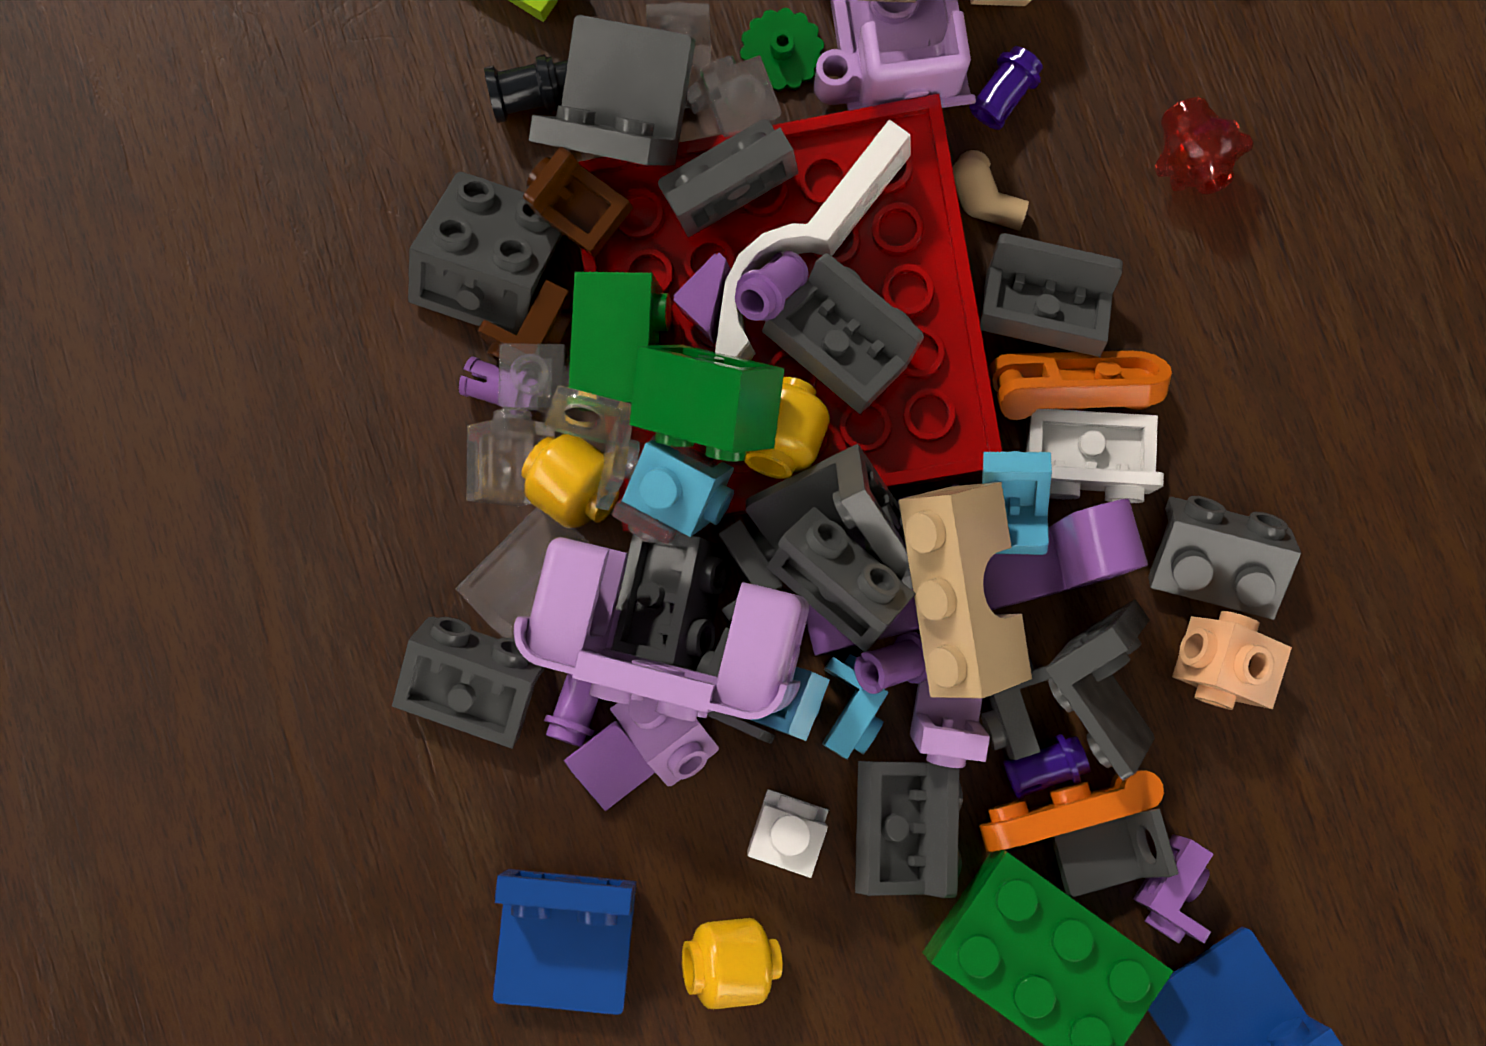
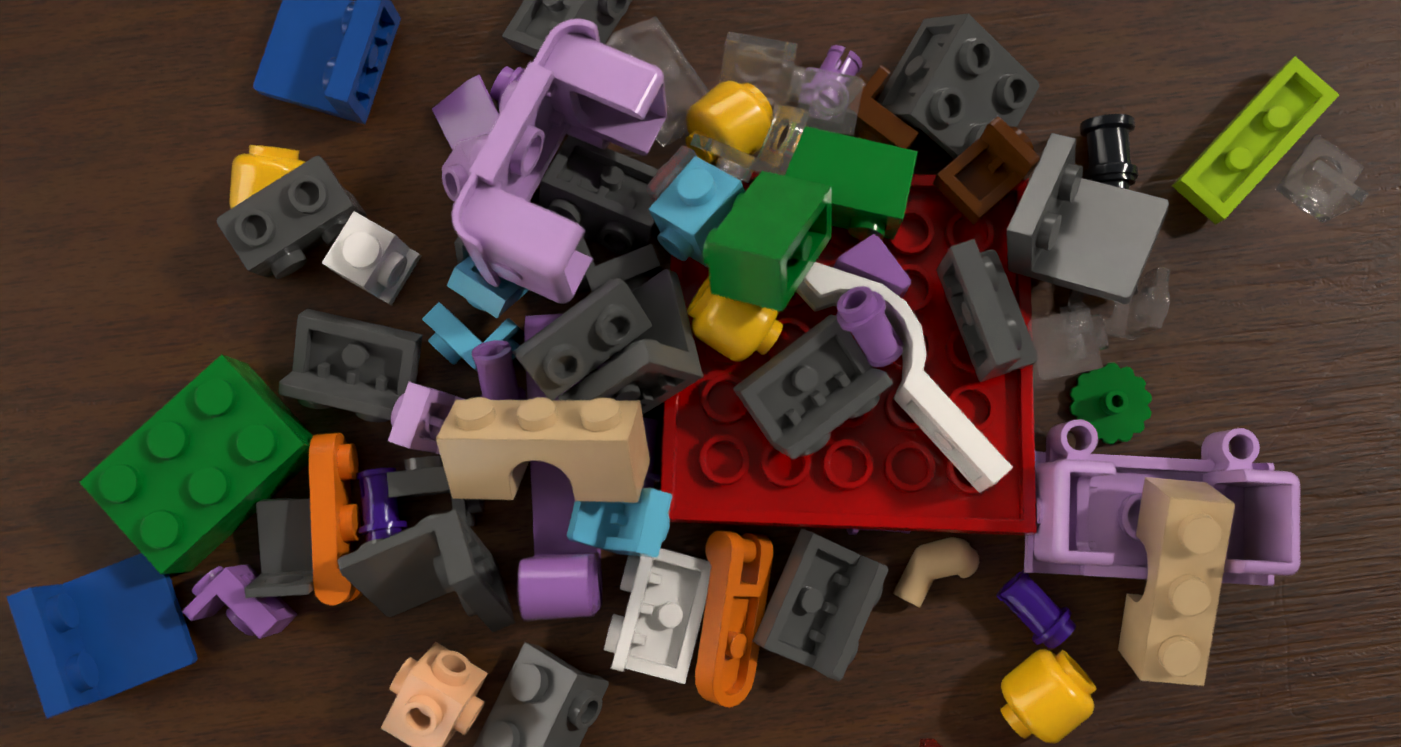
camera: 100 degrees right, 0 degrees up
(766, 934) = (289, 219): none -> dark grey bracket
(1089, 62) = (1047, 696): none -> yellow head

